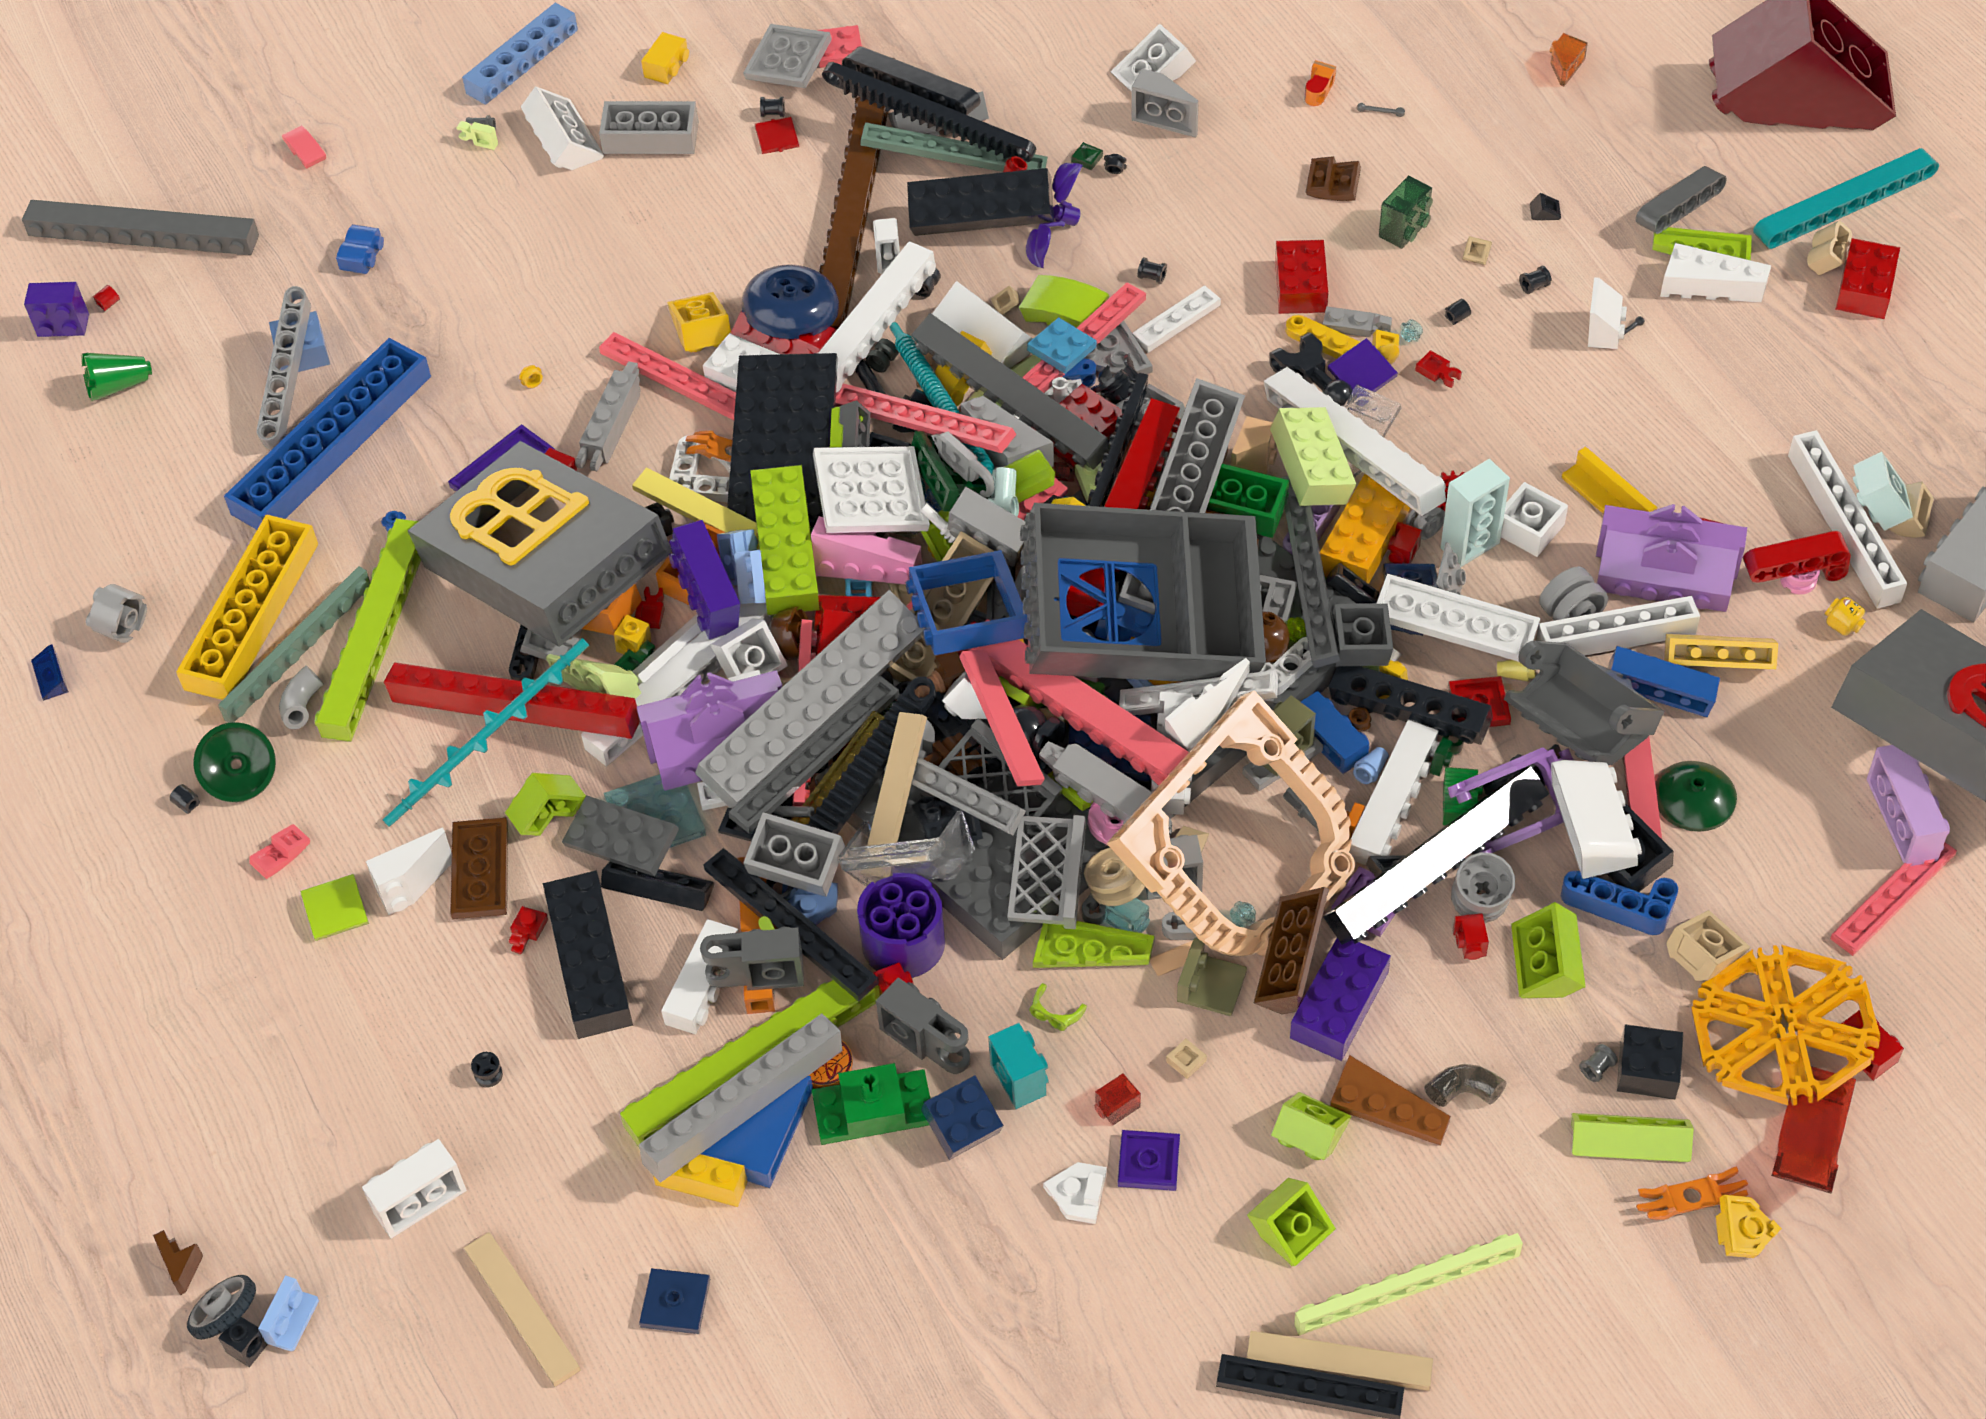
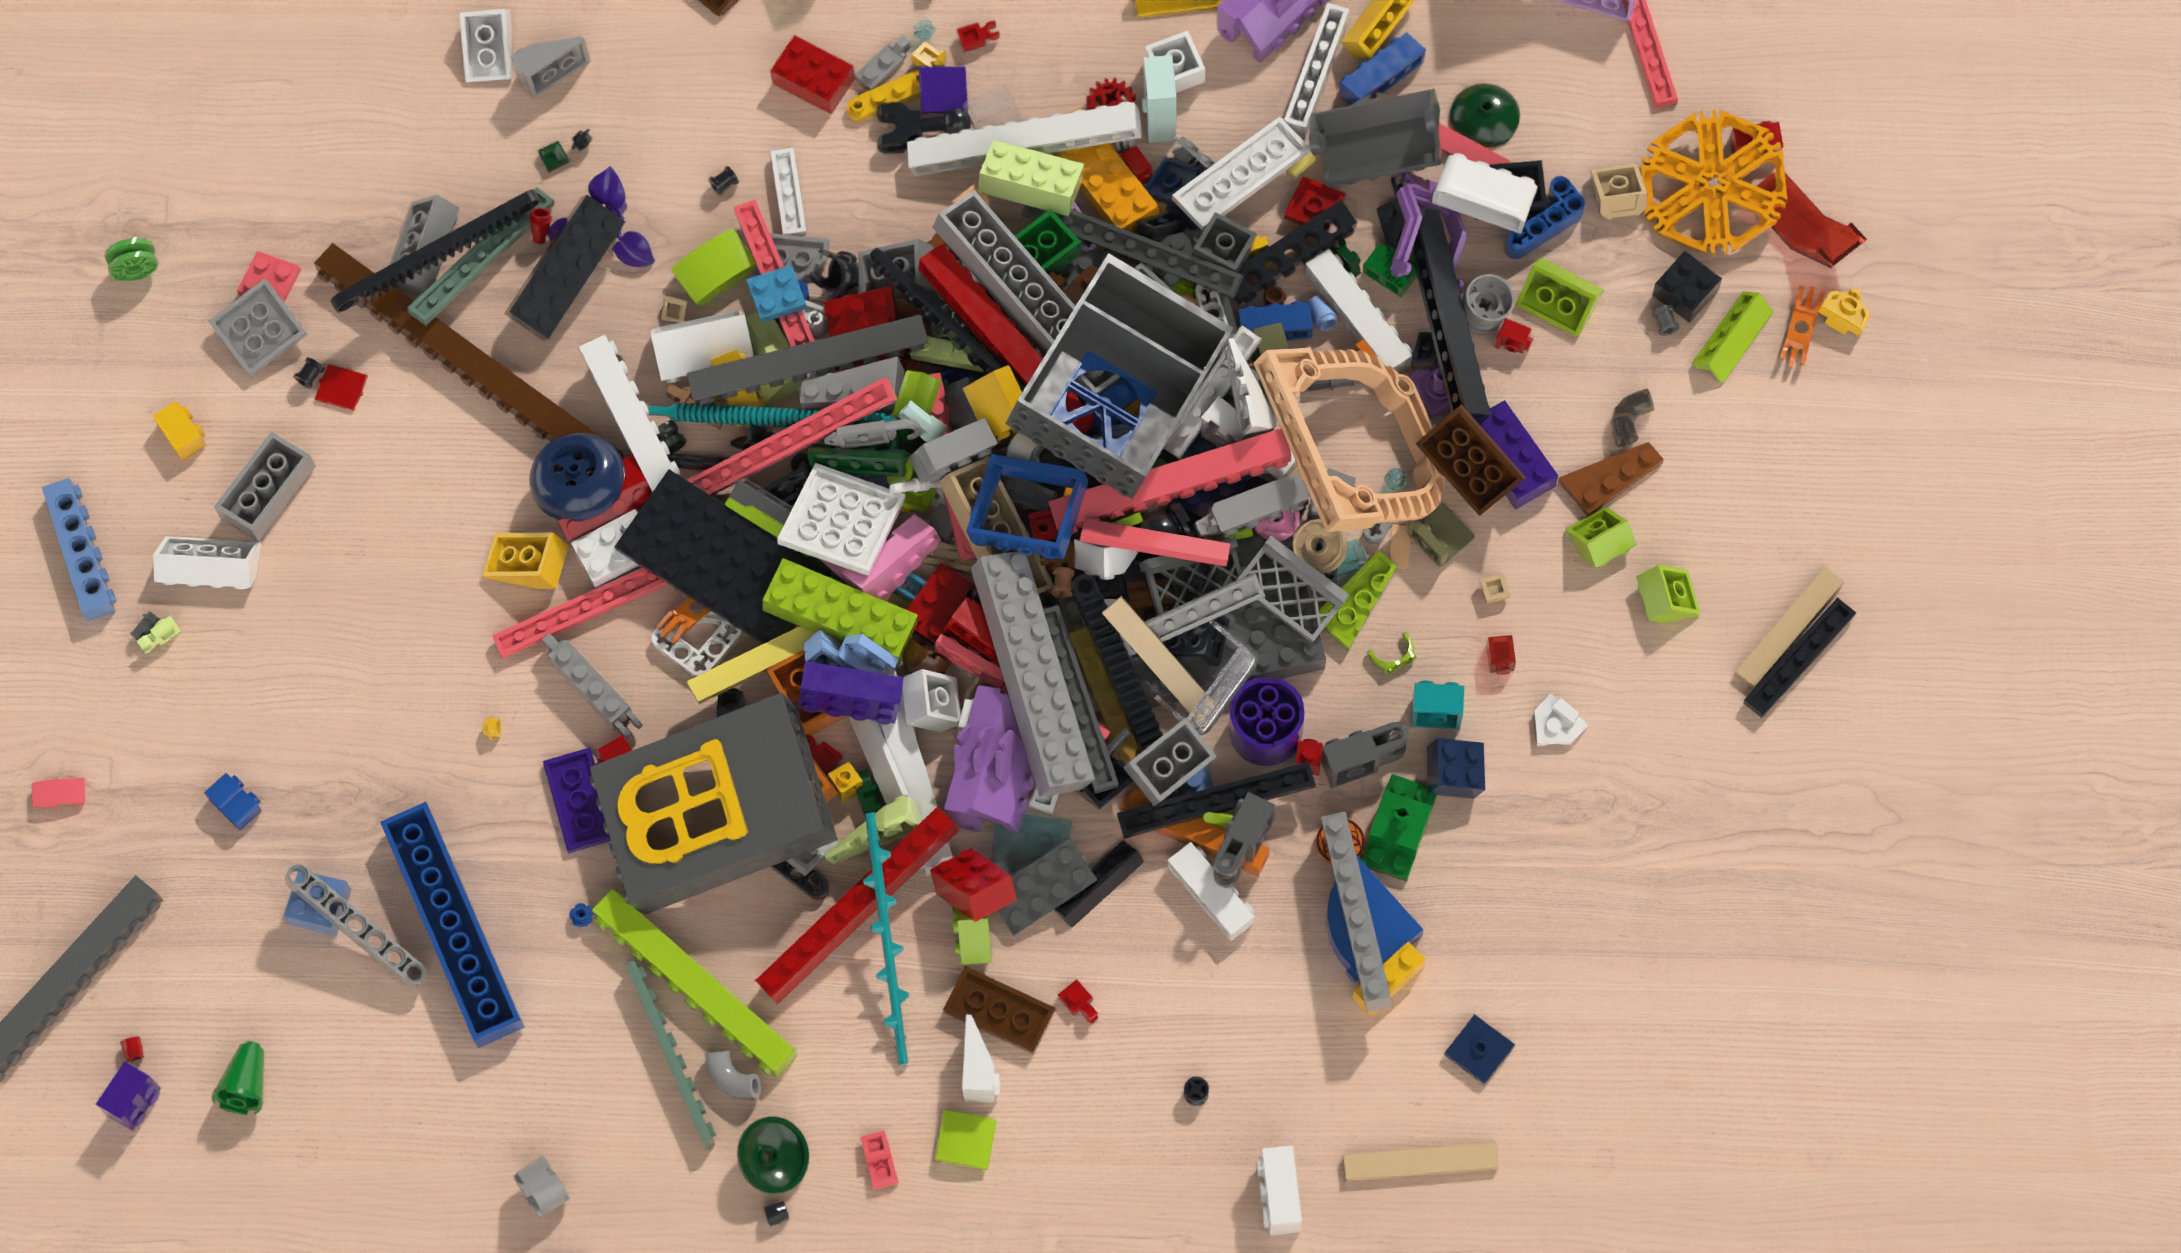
camera: 60 degrees left, 15 degrees up
(247, 607) = (606, 1074): yellow brick -> none
(580, 772) = (973, 884): none -> red brick
(587, 954) = (1137, 965): black brick -> none
(687, 1088) = (1306, 904): lime brick -> none
(886, 242) = (555, 367): white brick -> none
(913, 80) = (386, 245): black beam -> none
(1148, 1160) = (1559, 662): dark purple tile -> none
(1416, 1280) = (1759, 557): yellowish green plate -> none
(1573, 595) = (1274, 83): light grey wheel -> none

